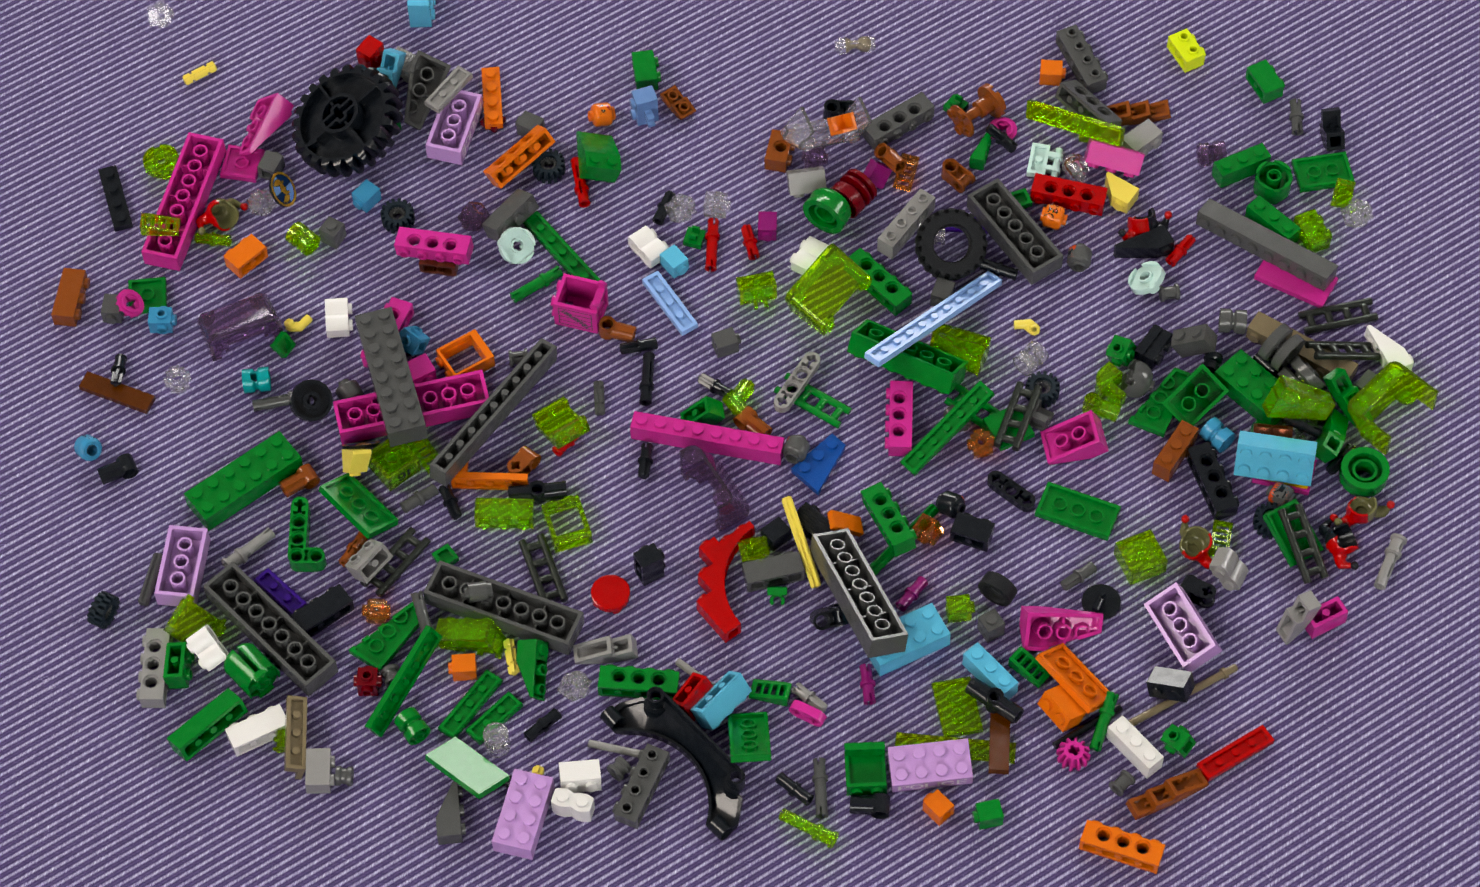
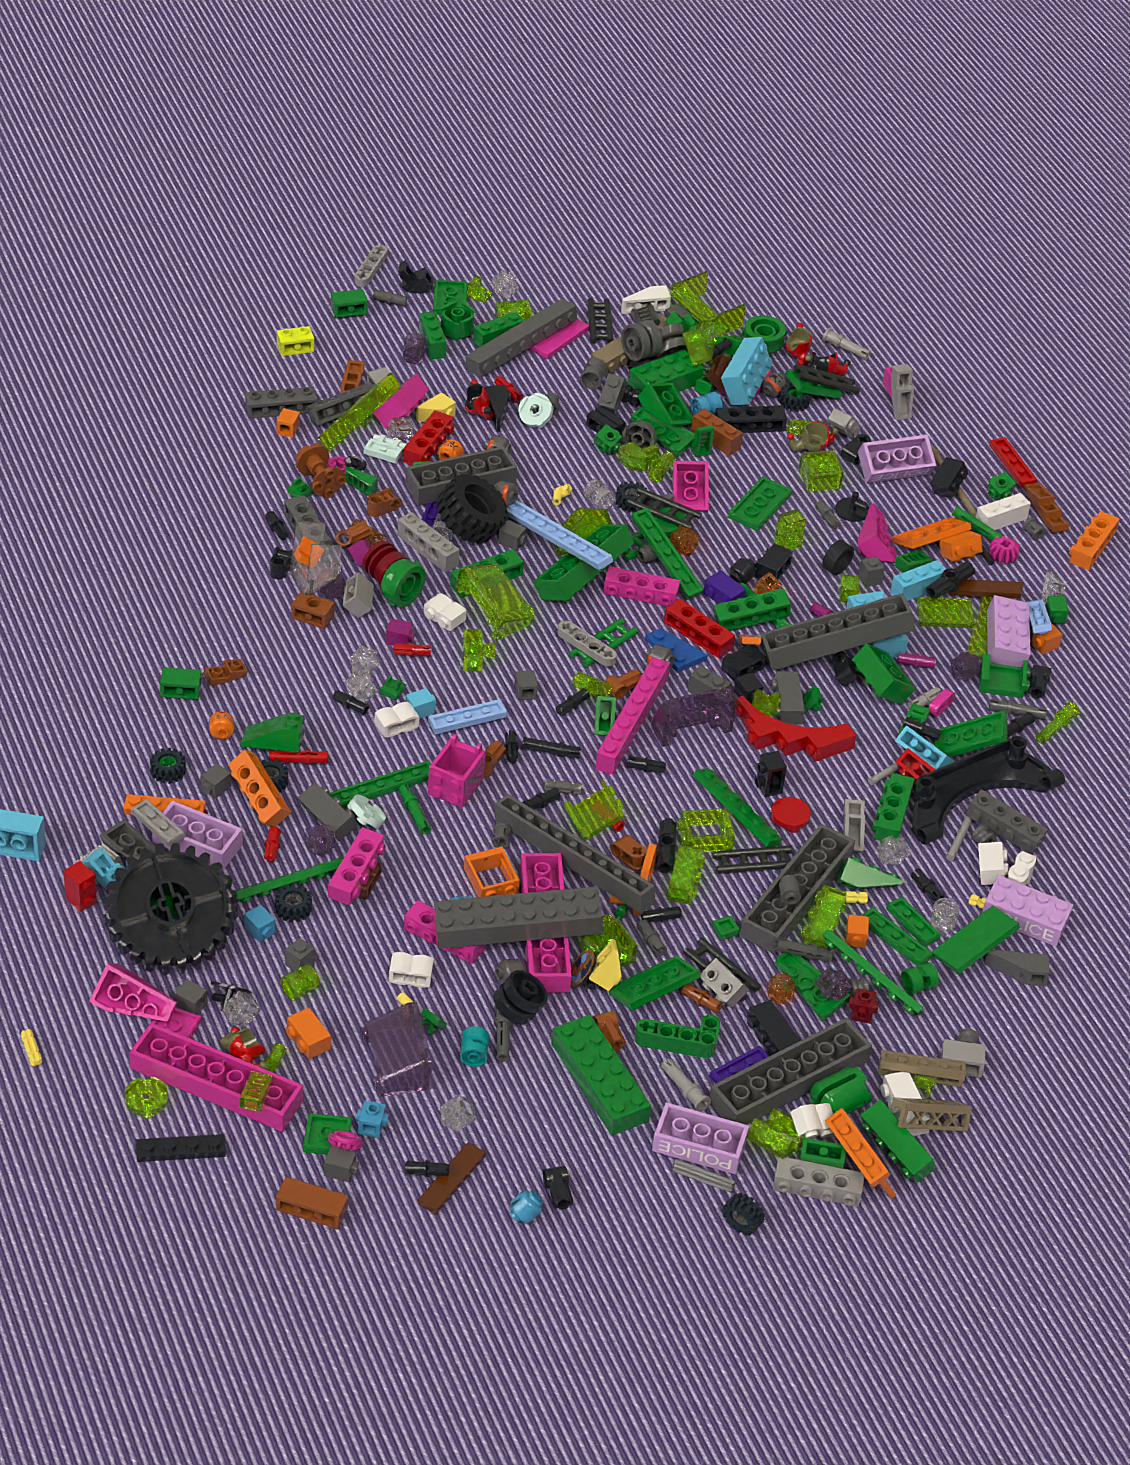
camera: 85 degrees left, 15 degrees down
(173, 682) = (859, 1150): none -> orange fence
(239, 743) = (936, 1109): none -> dark tan fence
(375, 646) = (833, 984): none -> clear purple brick
(420, 201) = (300, 876): none -> green plate
(464, 186) = (272, 844): none -> red axle
(543, 80) = (167, 757): none -> black bush
(573, 381) = (542, 799): none -> black pin
(606, 546) = (738, 807): none -> green plate
(644, 106) = (231, 686): medium blue brick -> none
(712, 237) = (408, 676): red pin -> none
(756, 695) = (922, 728): none -> black axle
(766, 497) = (705, 680): none -> dark grey brick
(801, 542) = (759, 668): light yellow axle -> none
(822, 648) = (883, 674): none -> green brick
(864, 44) = (207, 530): clear piece -> none
(864, 454) = (699, 628): none -> red brick
(864, 728) = (965, 666): none -> clear purple brick
(894, 97) = (276, 525): none -> black axle
(917, 493) = (723, 588): none -> dark purple brick
(958, 790) = (1039, 617): none -> light blue plate
(991, 270) = (508, 491): none -> dark grey head
(1007, 483) = (721, 542): black beam -> none
(1024, 537) = (790, 529): none -> clear neon green brick
(1027, 803) = (1052, 586): none -> clear slope
(1147, 439) = (706, 441): none -> green slope
(1348, 92) = (362, 276): none -> light grey beam

